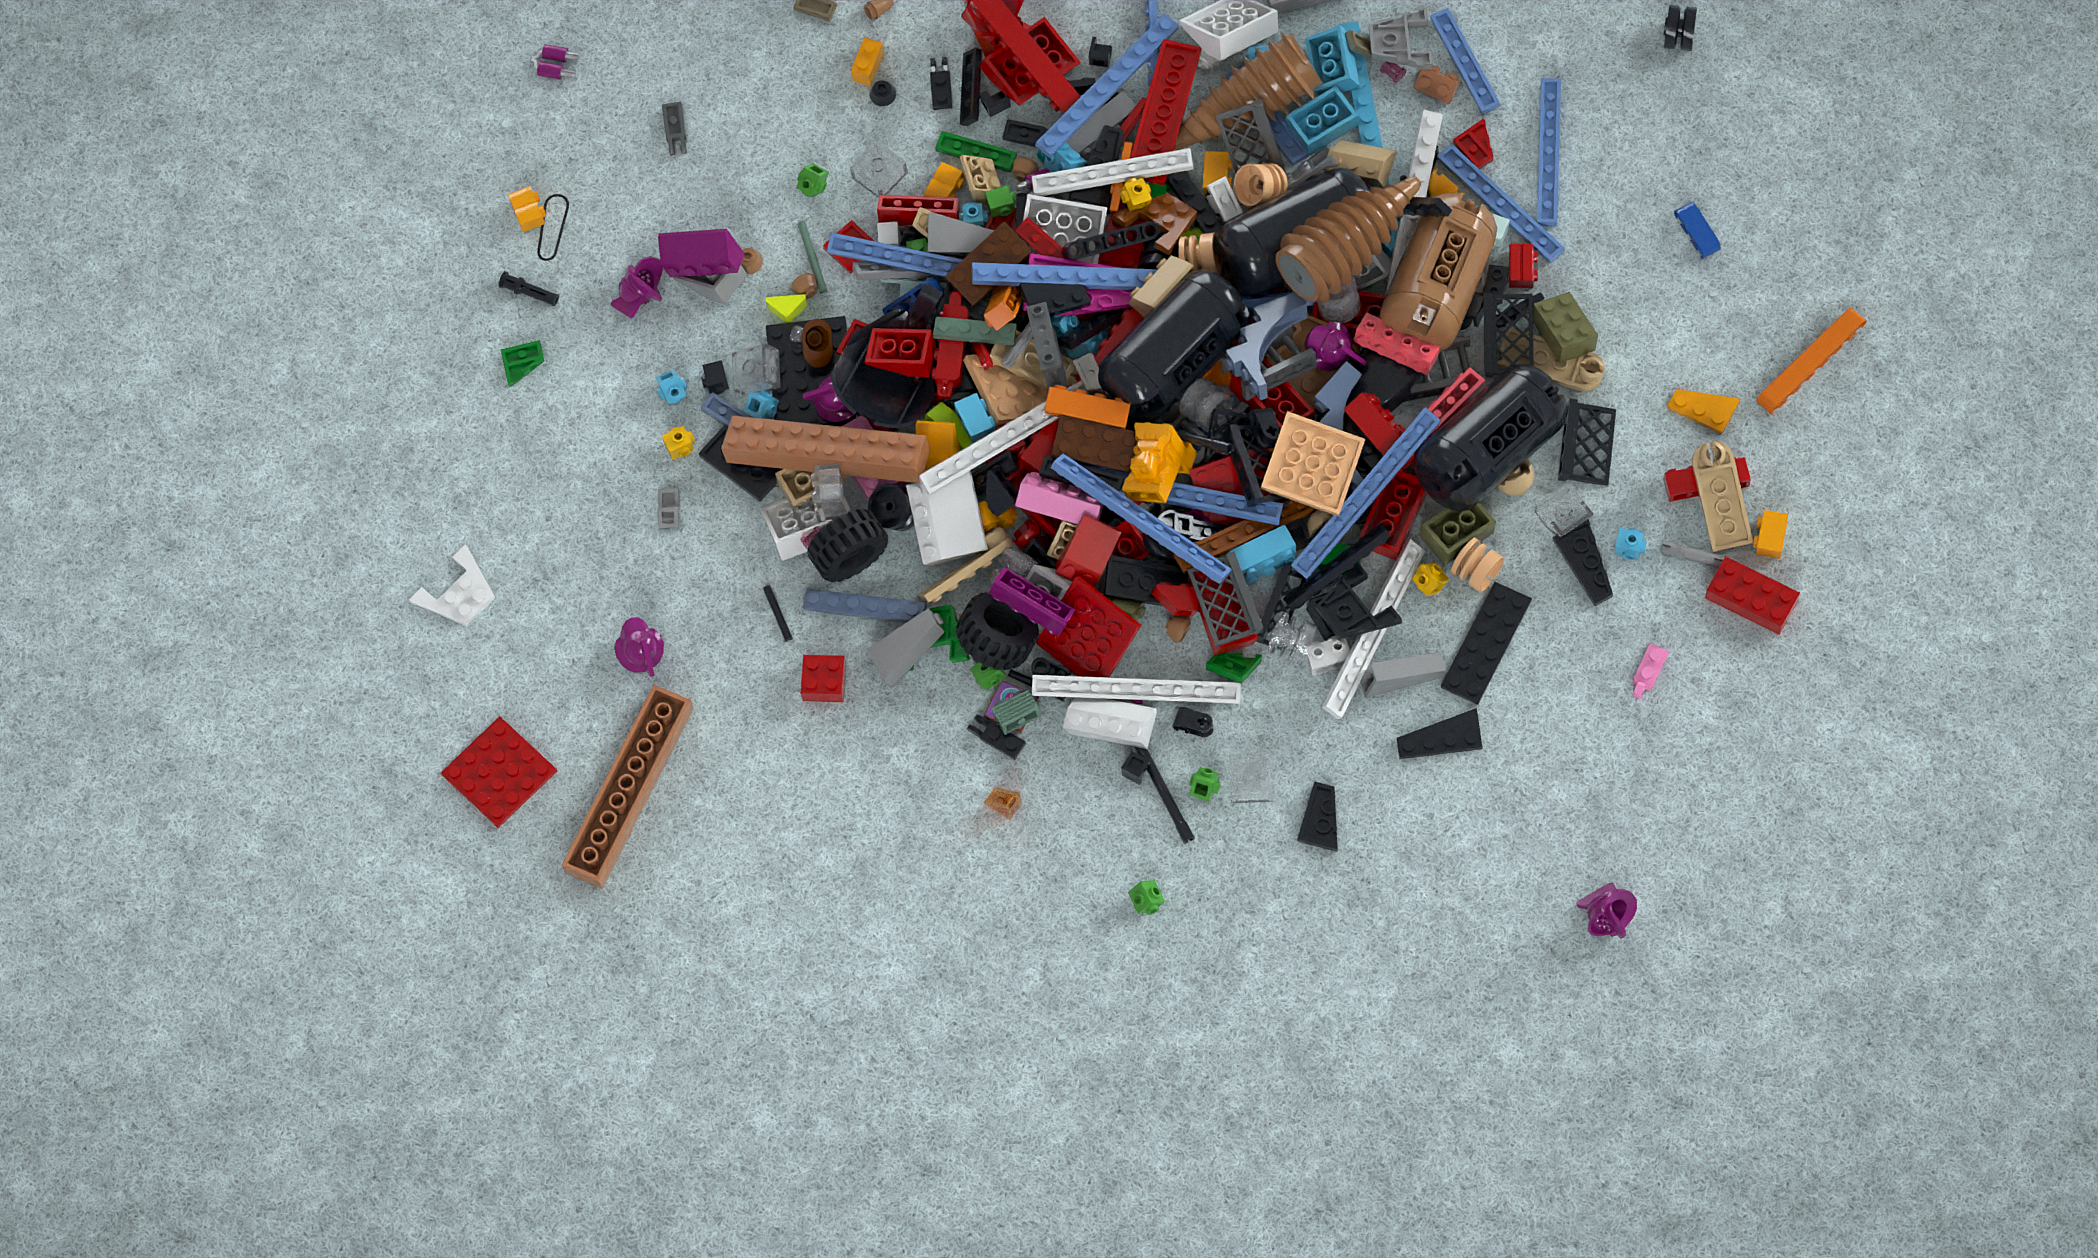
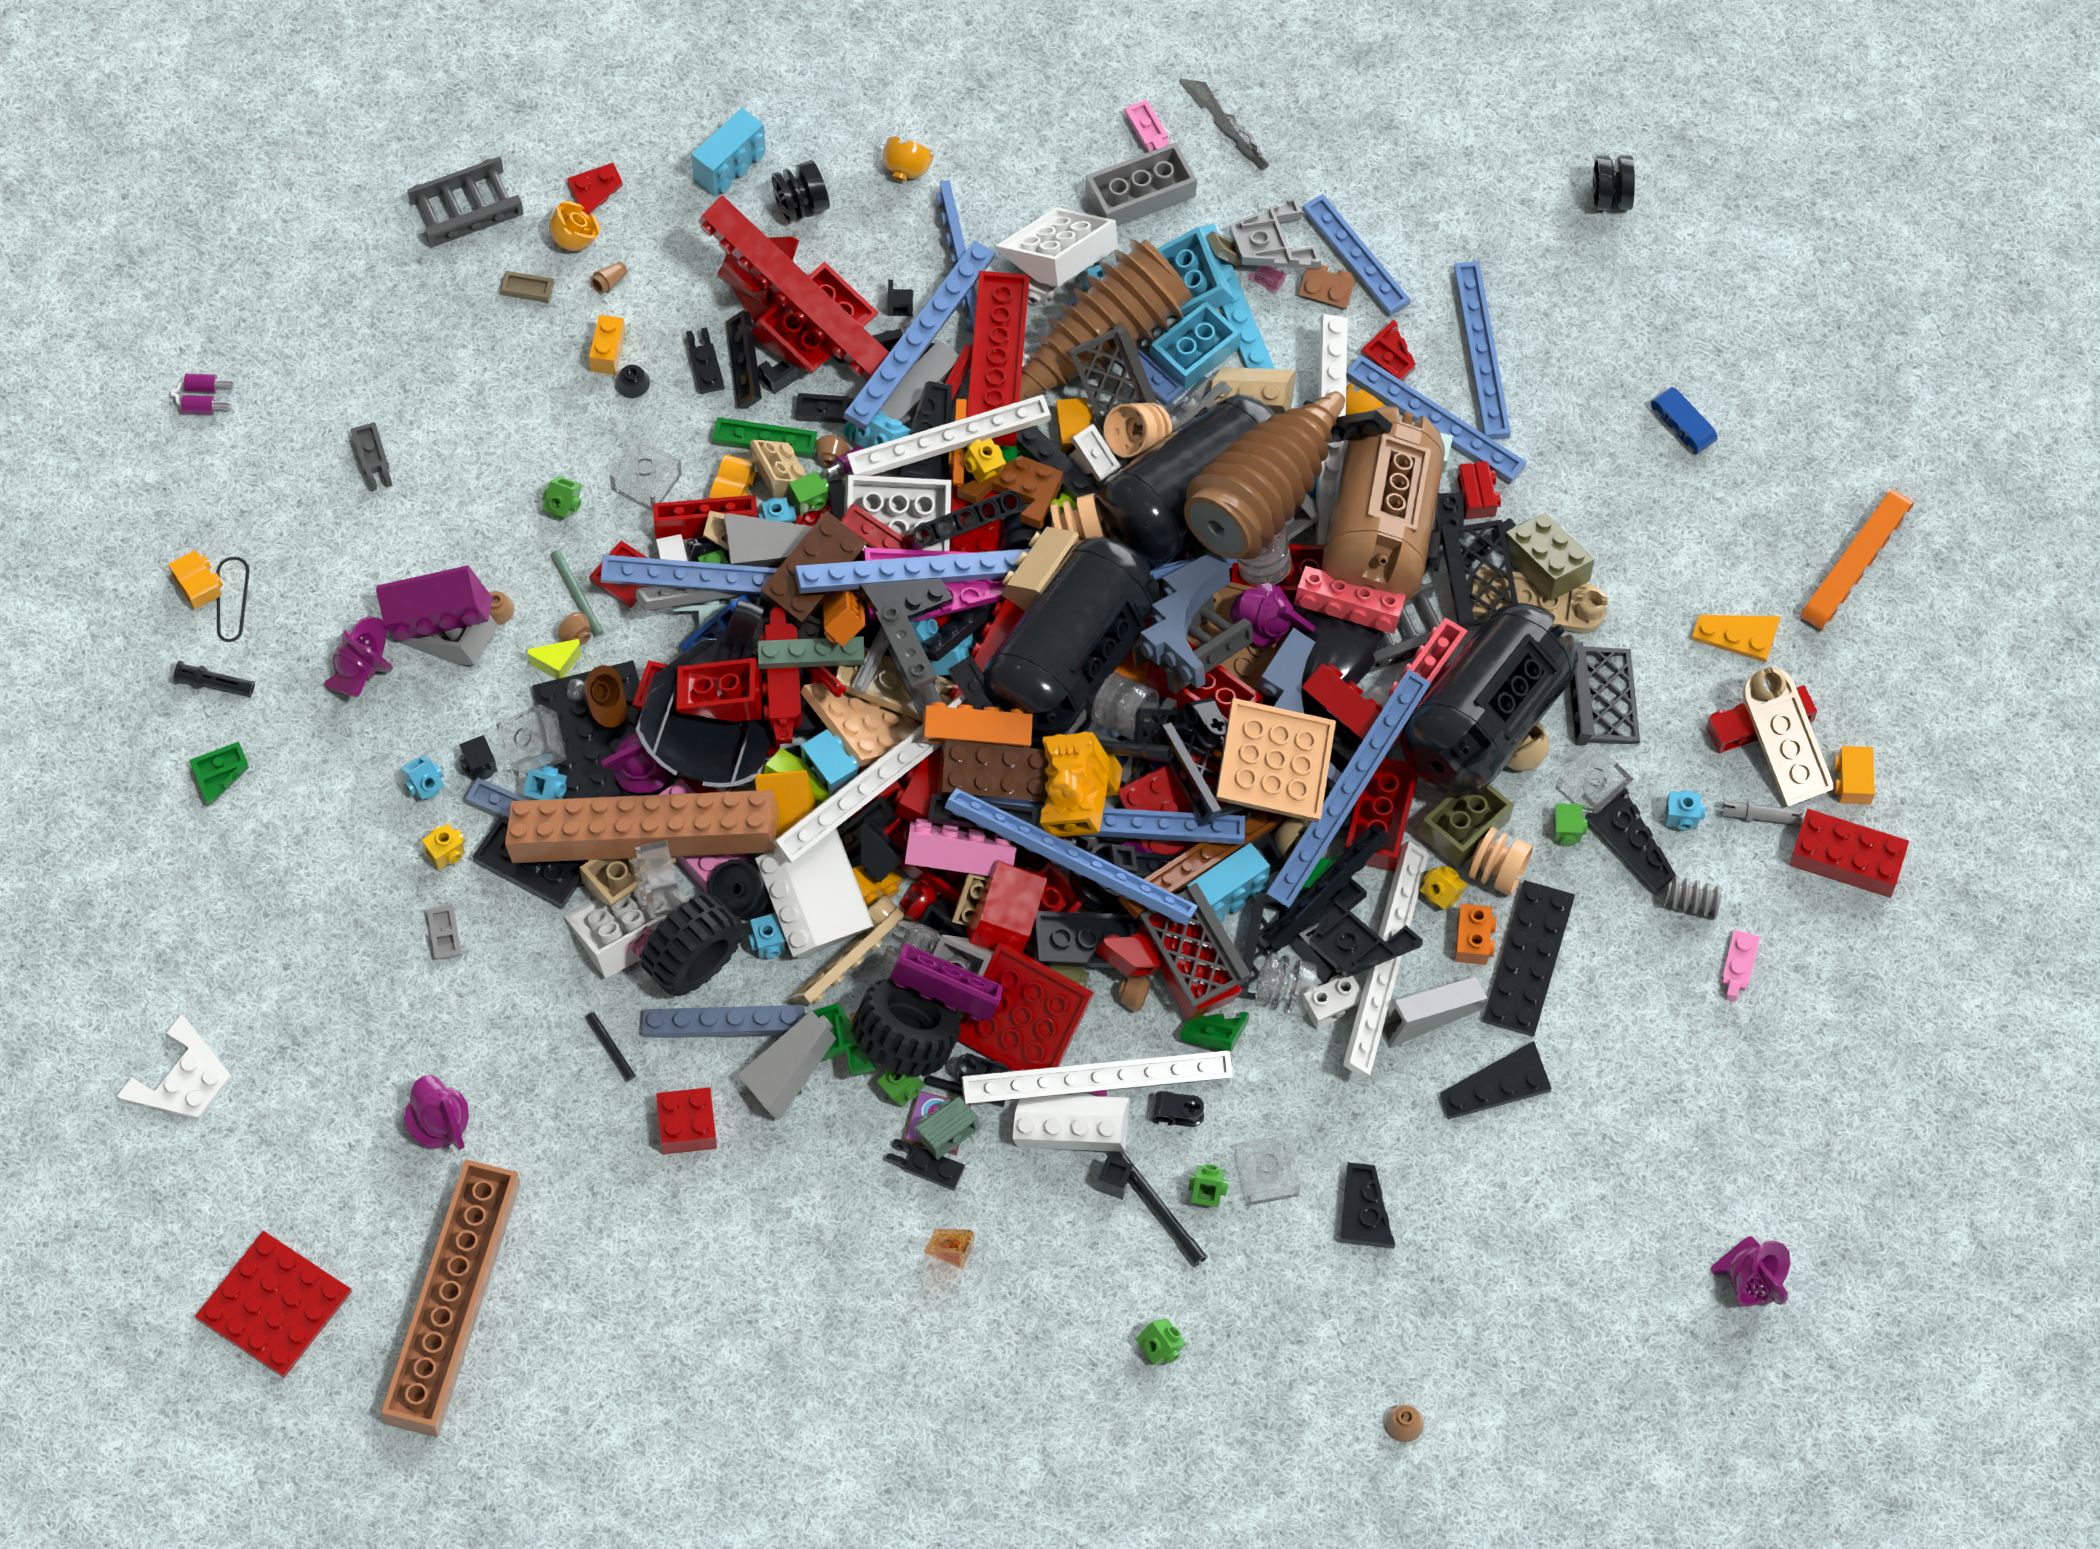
camera: 20 degrees left, 5 degrees down
(907, 546) = (767, 936): none -> medium azure brick
(1320, 989) = (1402, 1429): none -> medium nougat cone
(1446, 618) = (1474, 933): none -> orange brick
(1538, 542) = (1569, 824): none -> bright green brick
(1622, 613) = (1693, 896): none -> light grey piece

